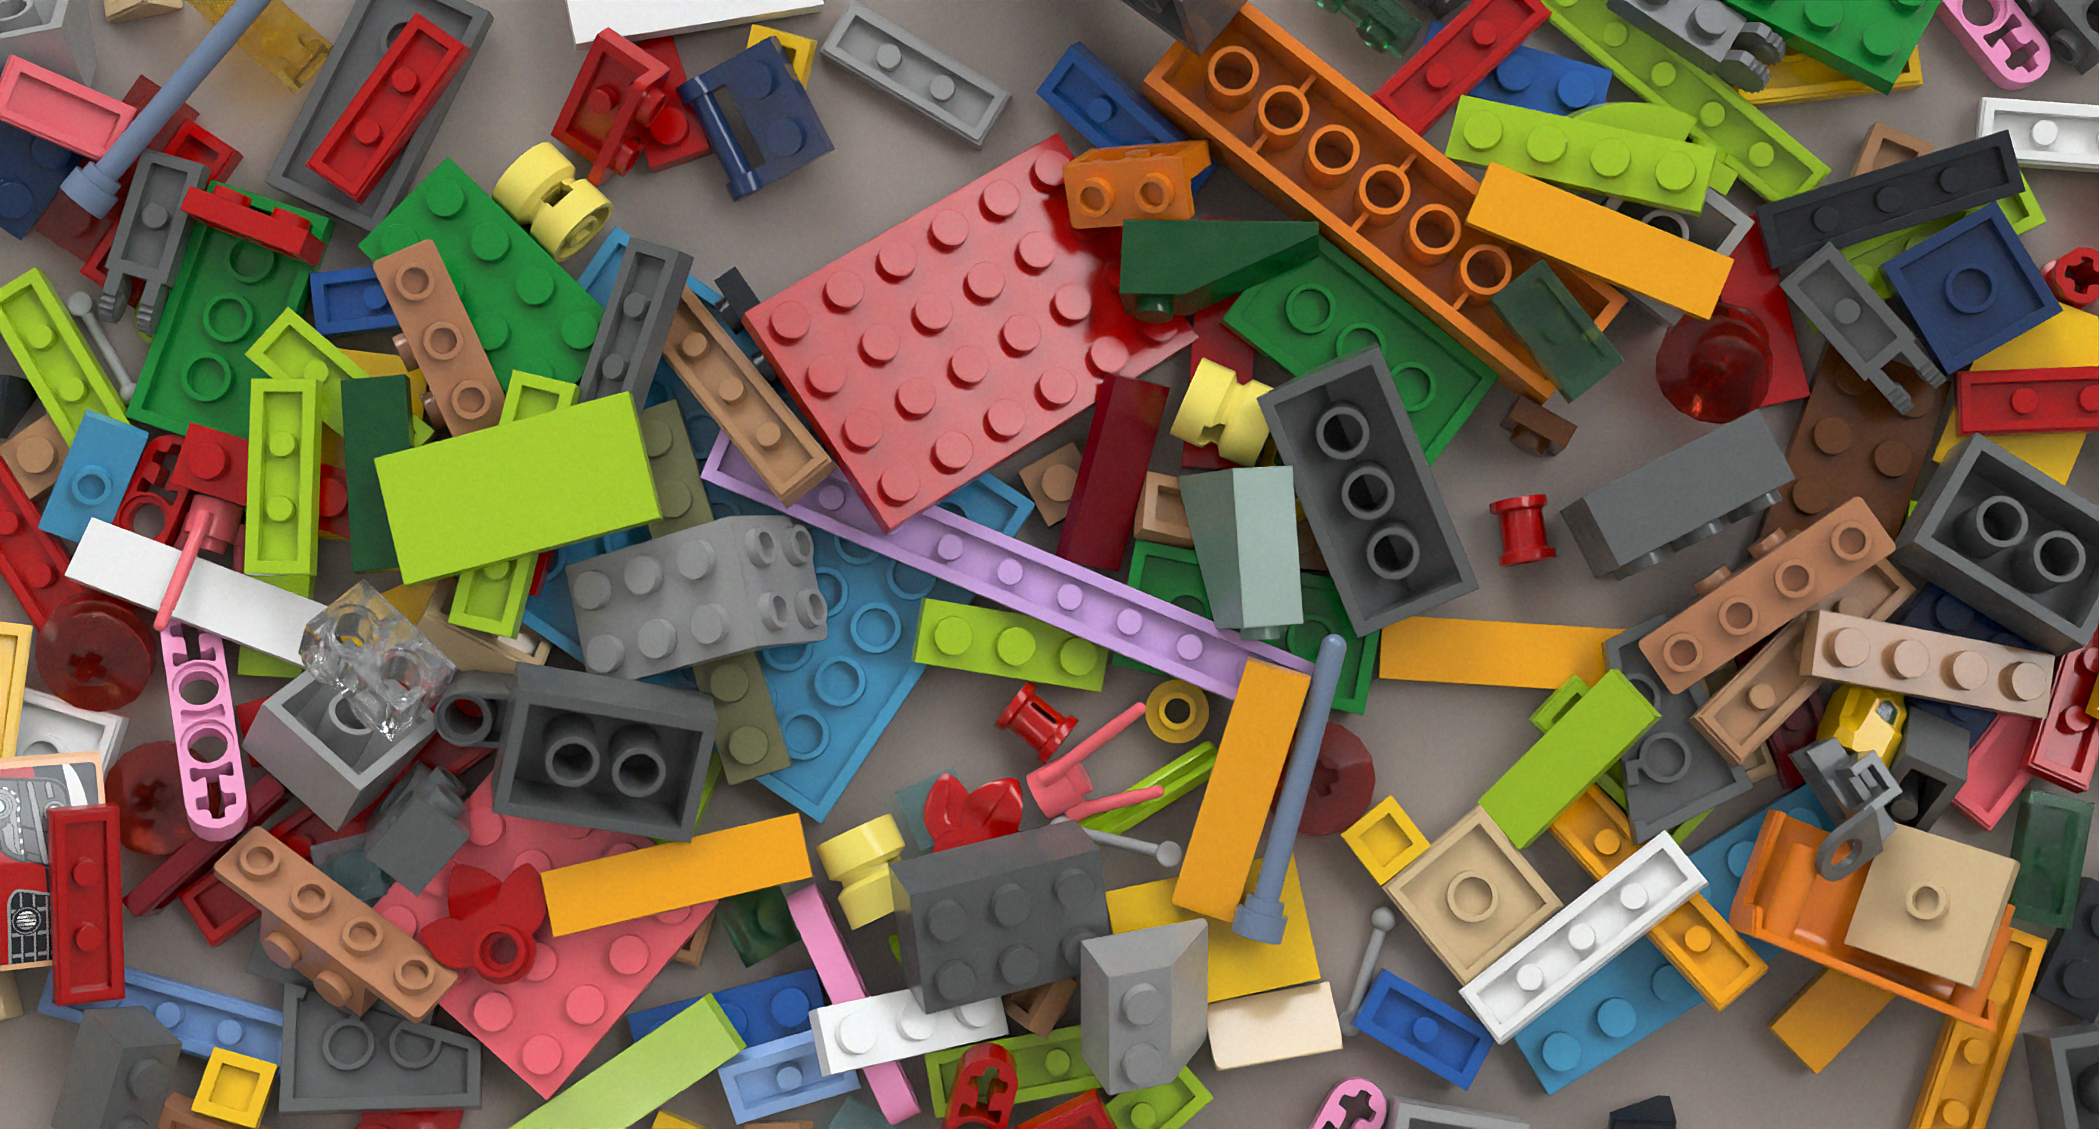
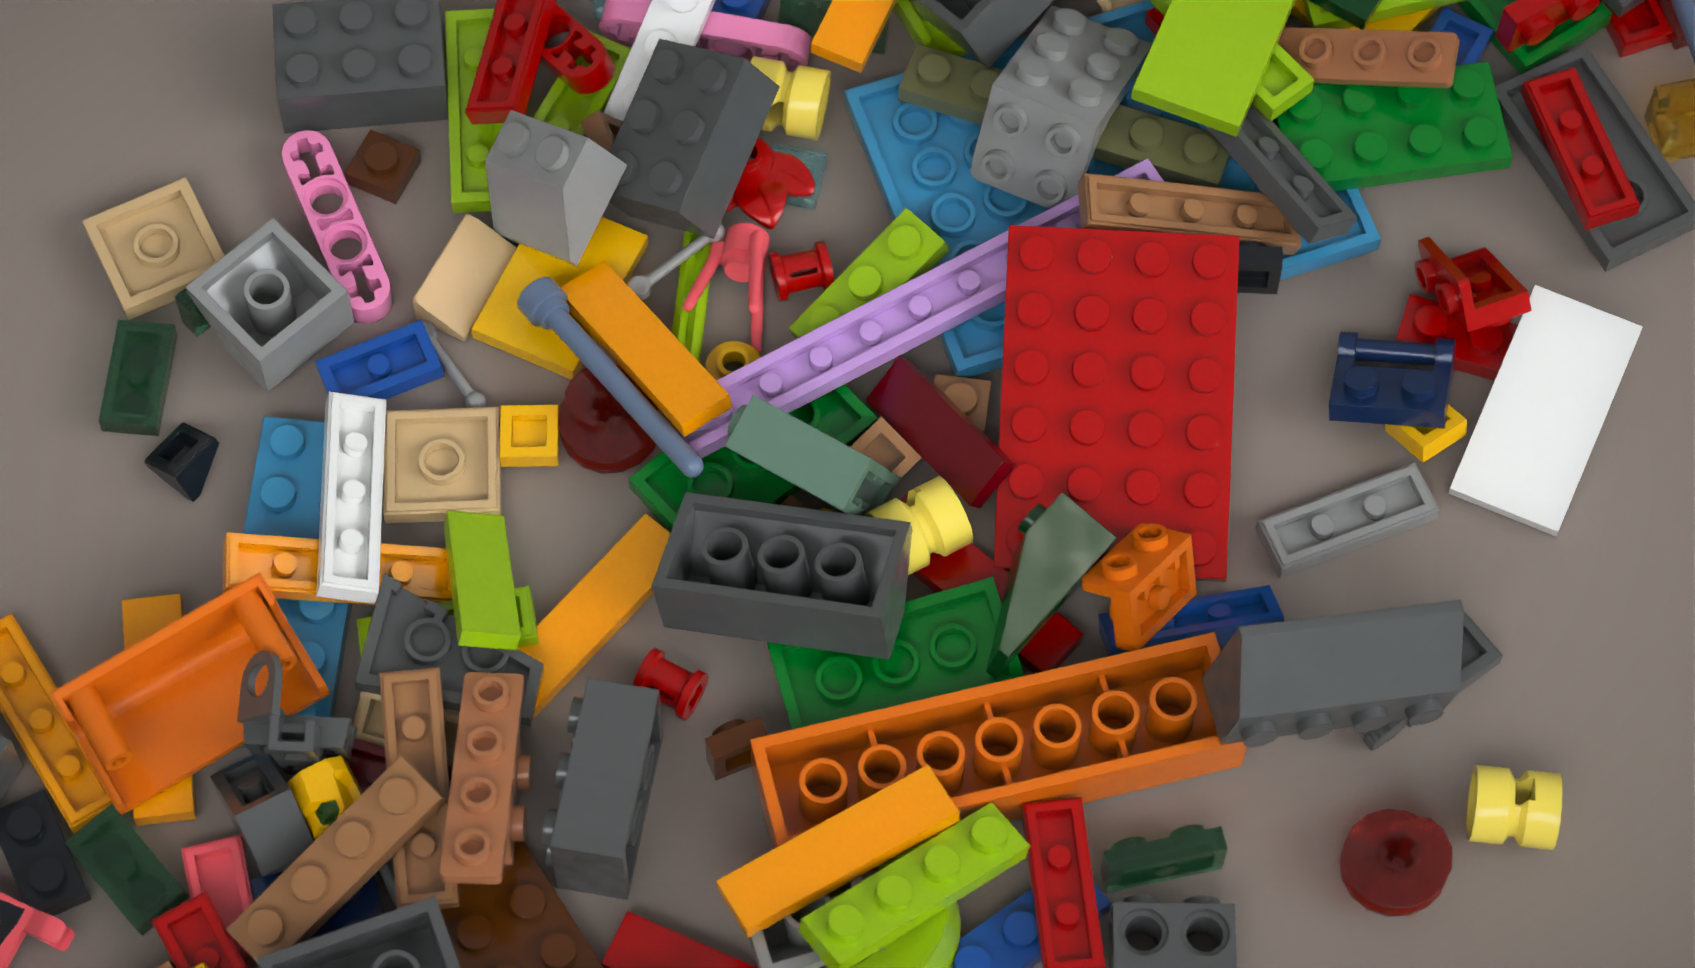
camera: 120 degrees right, 20 degrees down
(543, 193) = (1449, 209): light yellow wheel -> none
(1555, 331) = (795, 766): clear green plate -> none
(1717, 365) = (679, 900): clear red piece -> none
(1933, 905) = (171, 730): tan plate -> none

